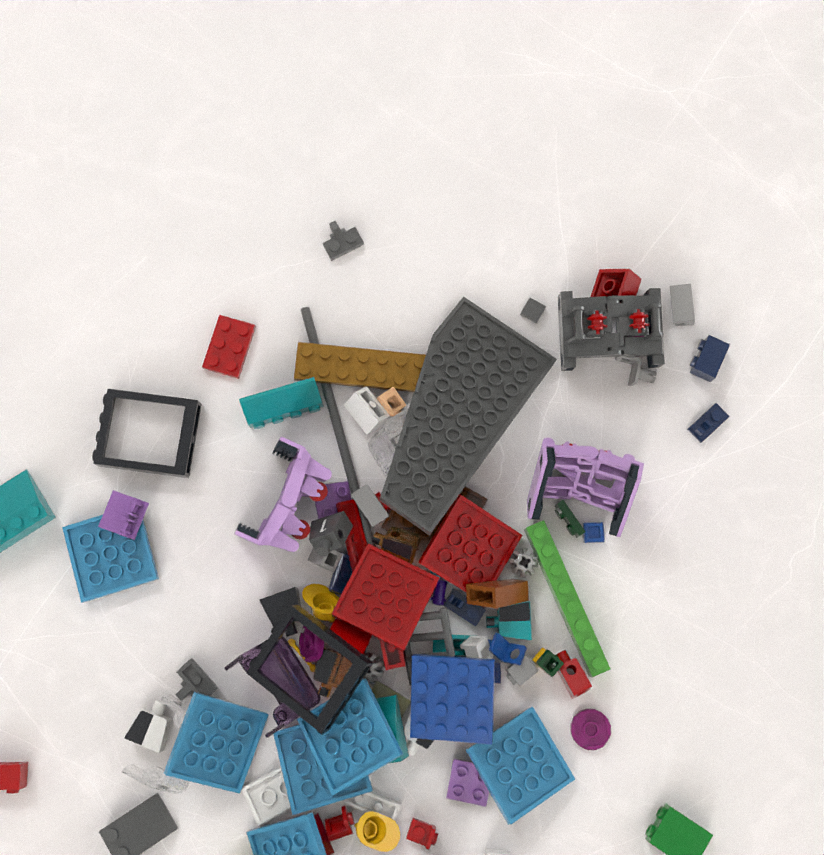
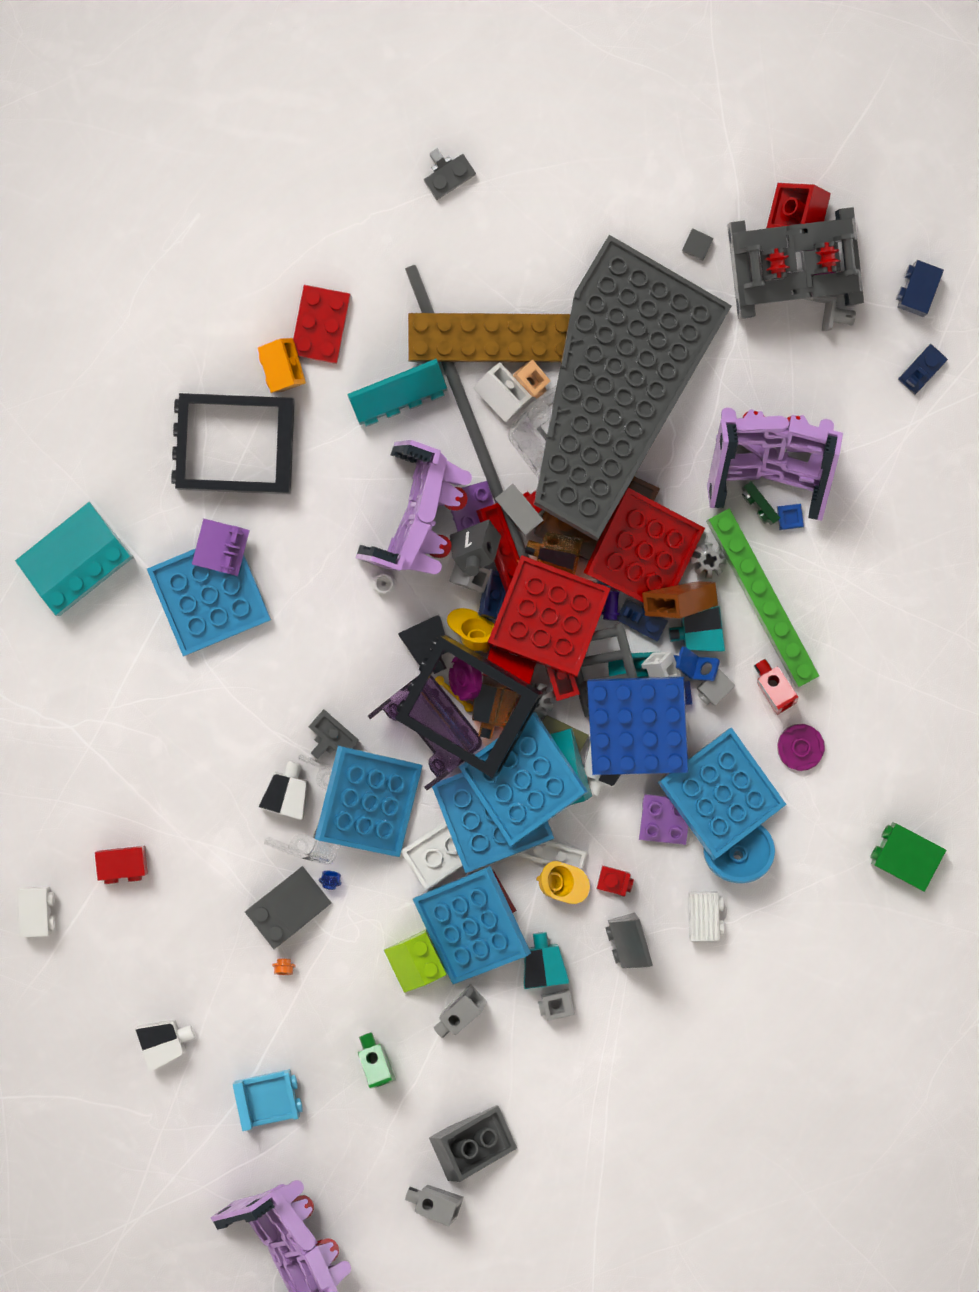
camera: 10 degrees left, 10 degrees up
(178, 808) = (330, 879): none -> clear blue plate
(192, 374) = (281, 365): none -> light orange brick
(249, 557) = (380, 577): none -> white plate
(339, 825) = (519, 880): red bracket -> none
(545, 830) = (756, 859): none -> dark azure dish
(546, 661) = (744, 673): dark green leg -> none
(682, 305) = (883, 222): light grey hinge -> none

